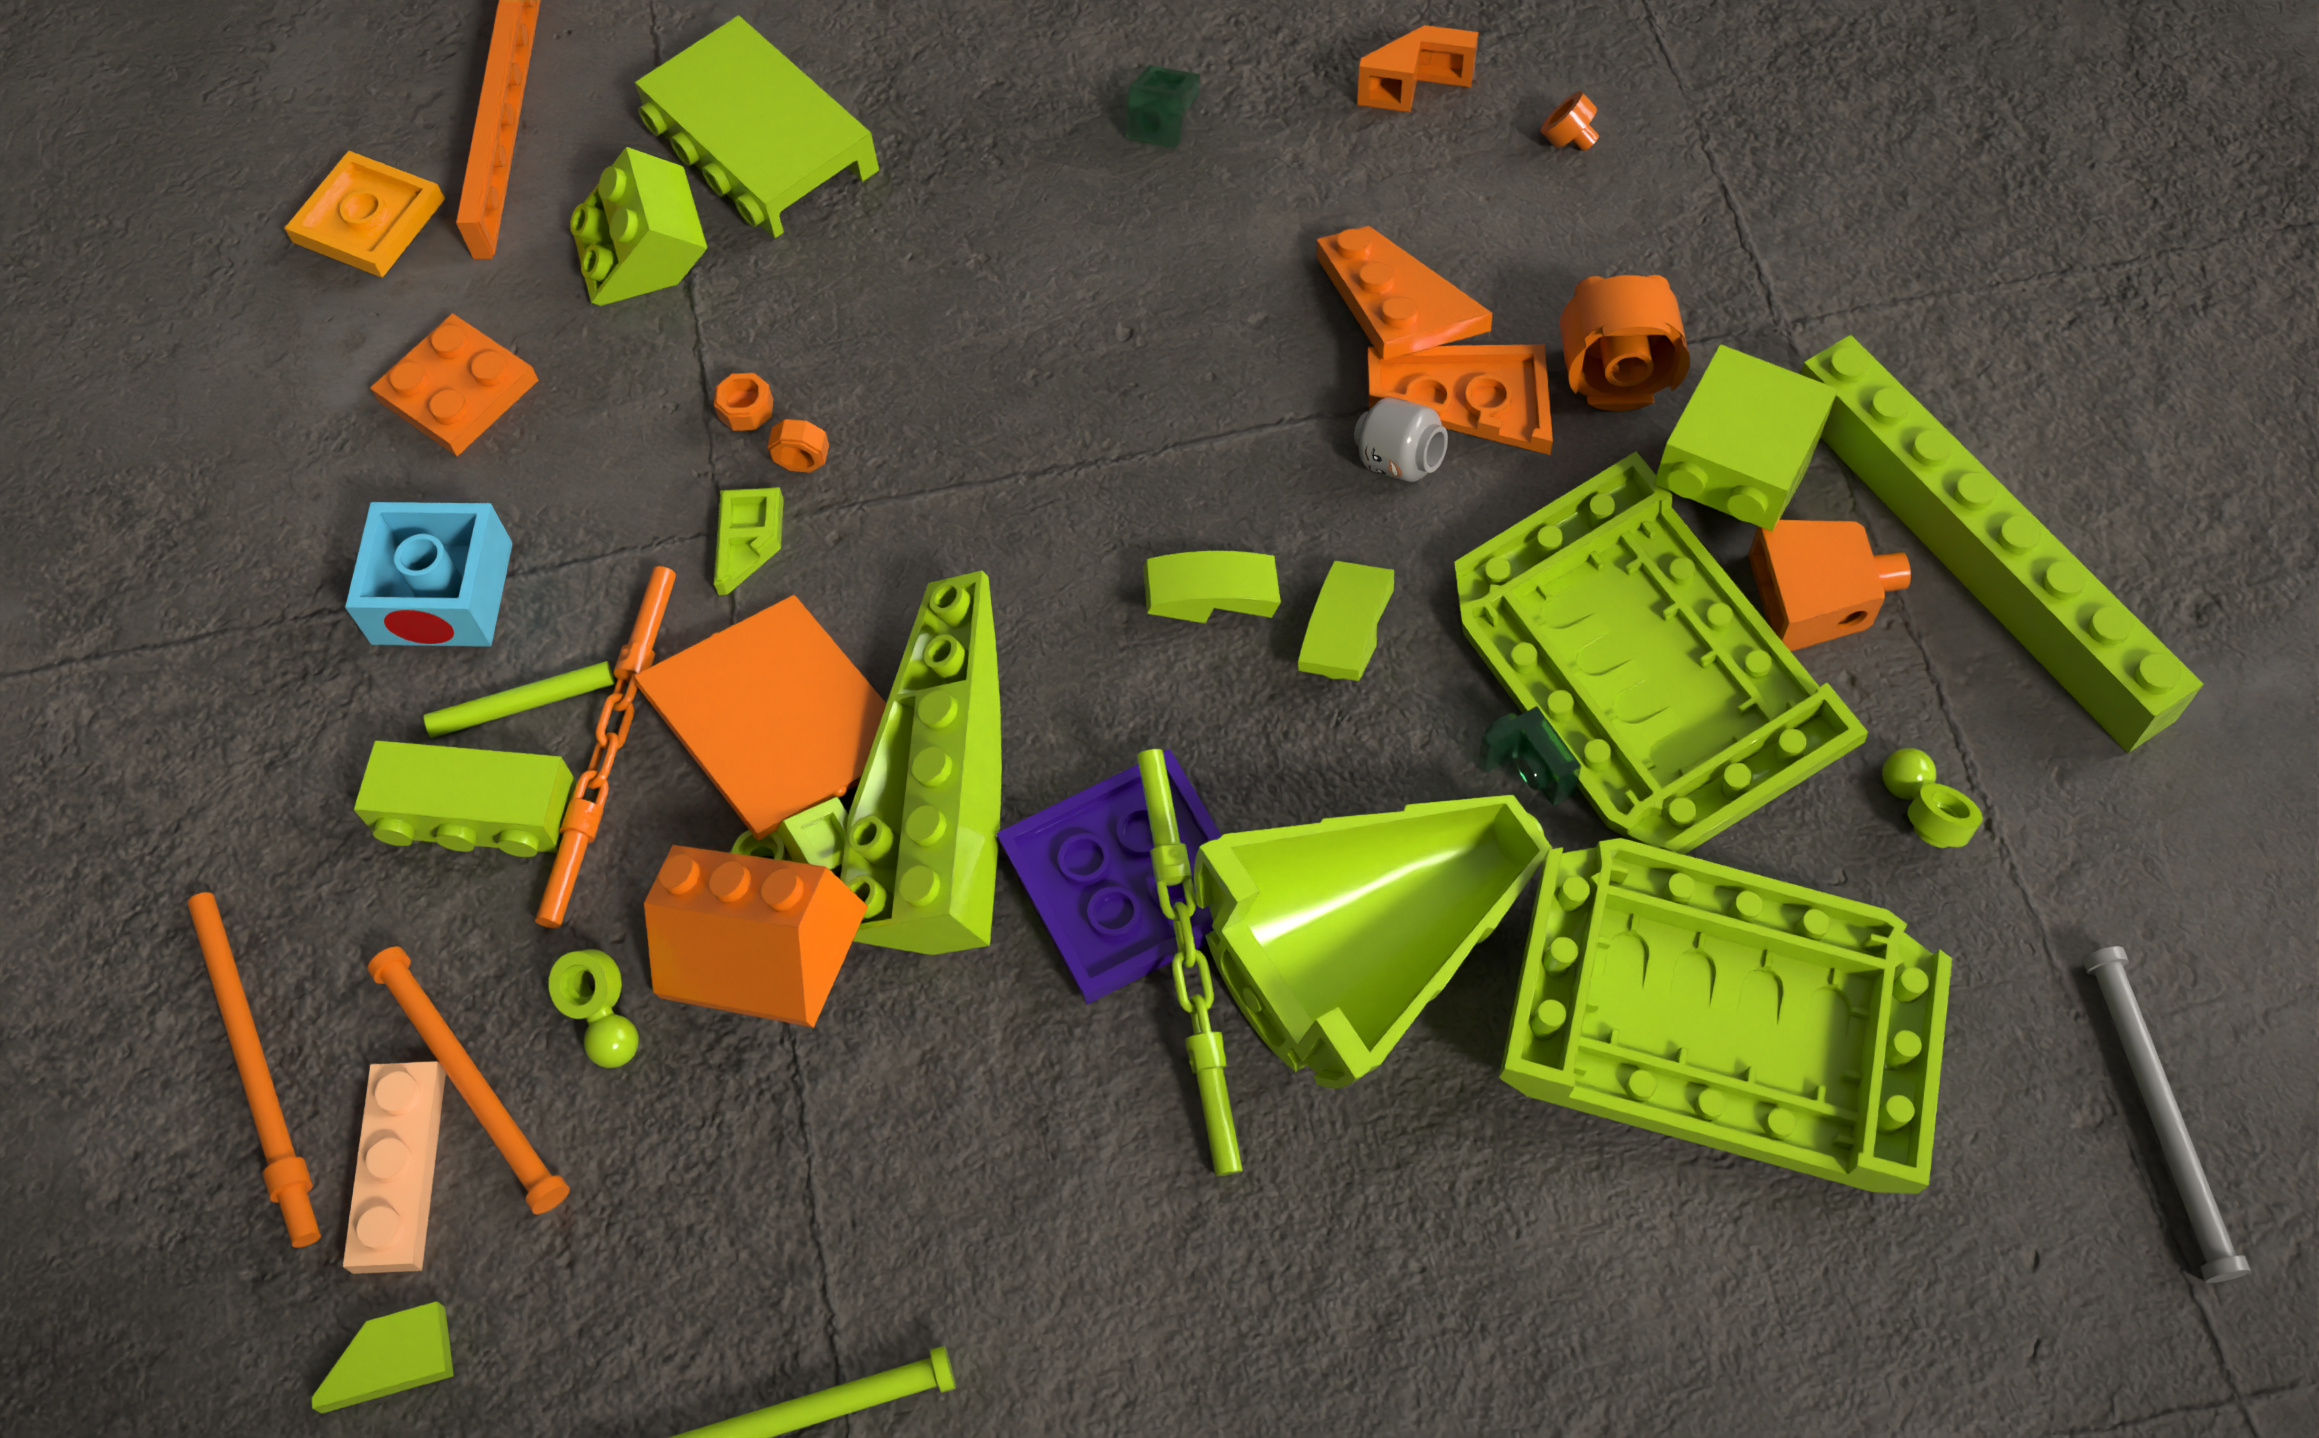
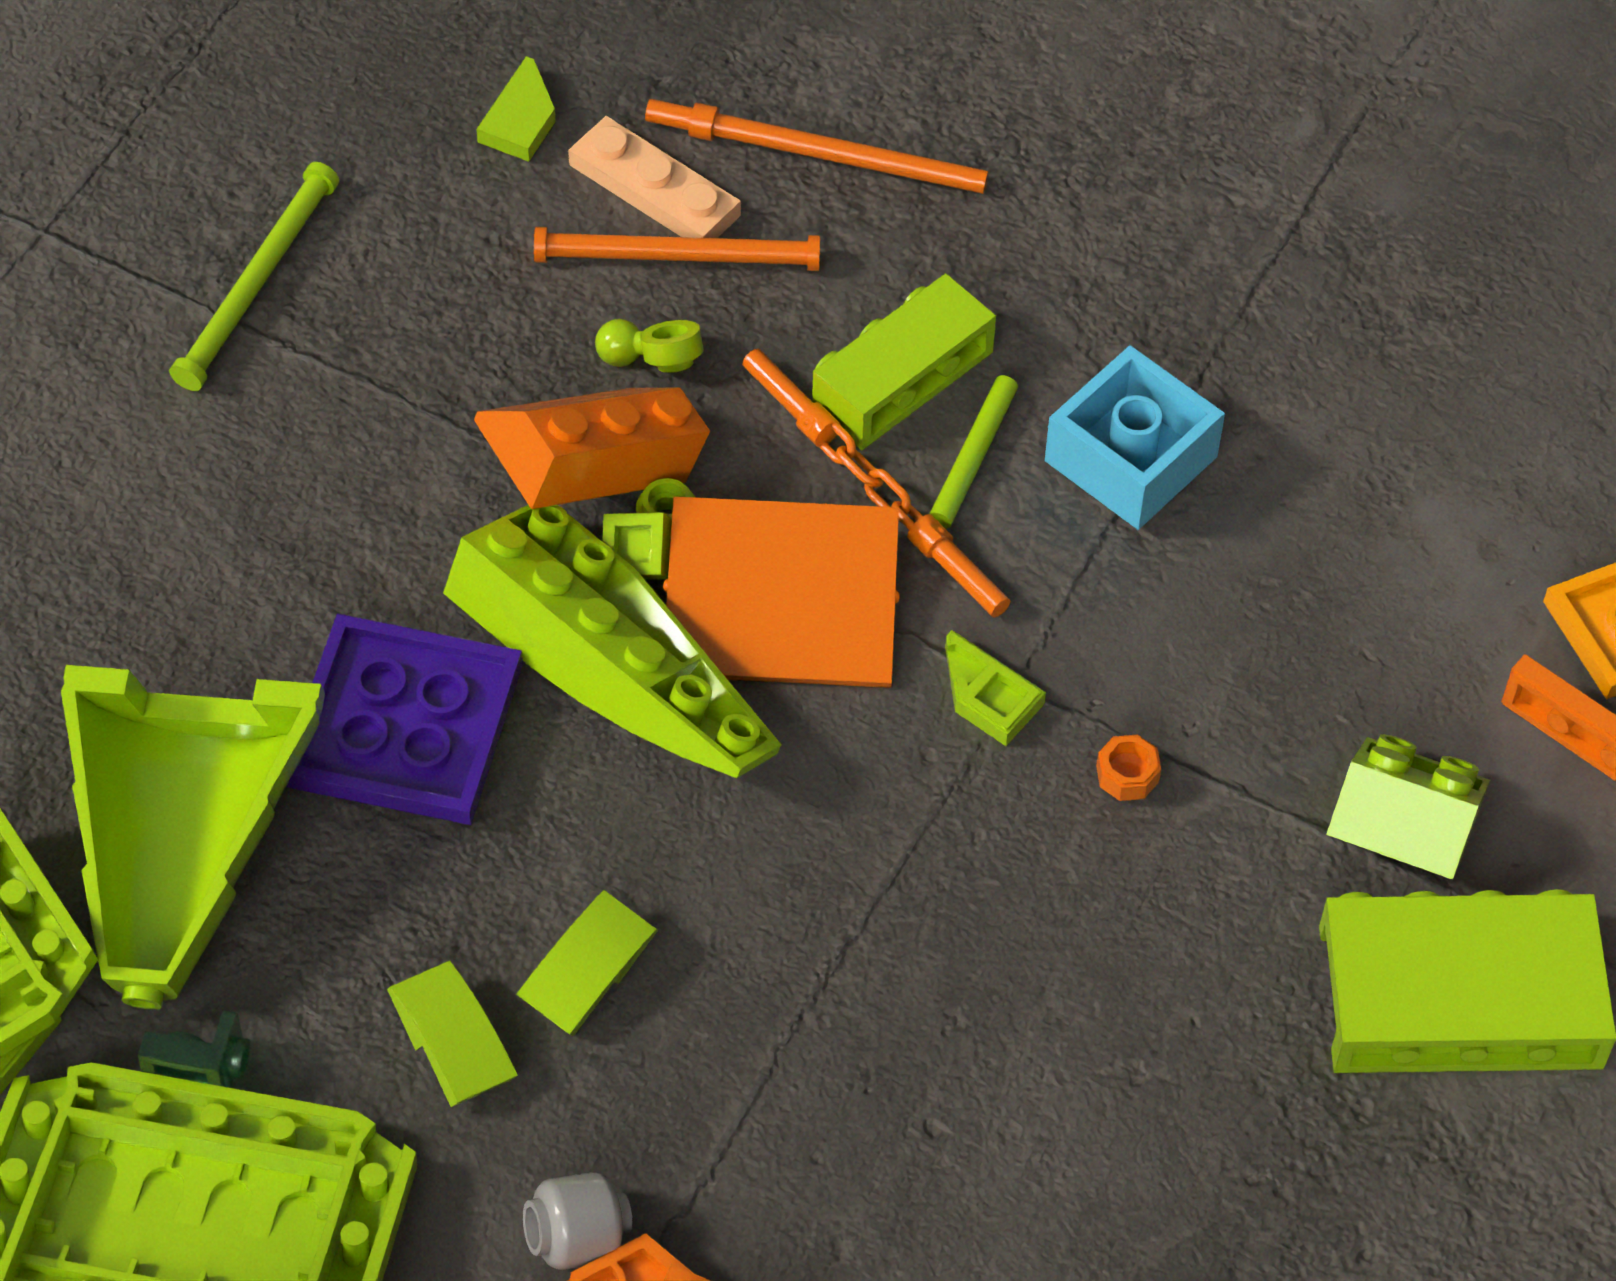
camera: 125 degrees right, 5 degrees down
(454, 384) = (1359, 585): orange plate -> none
(798, 445) = (1034, 770): orange tile -> none
(1206, 1046) = (354, 714): lime piece -> none

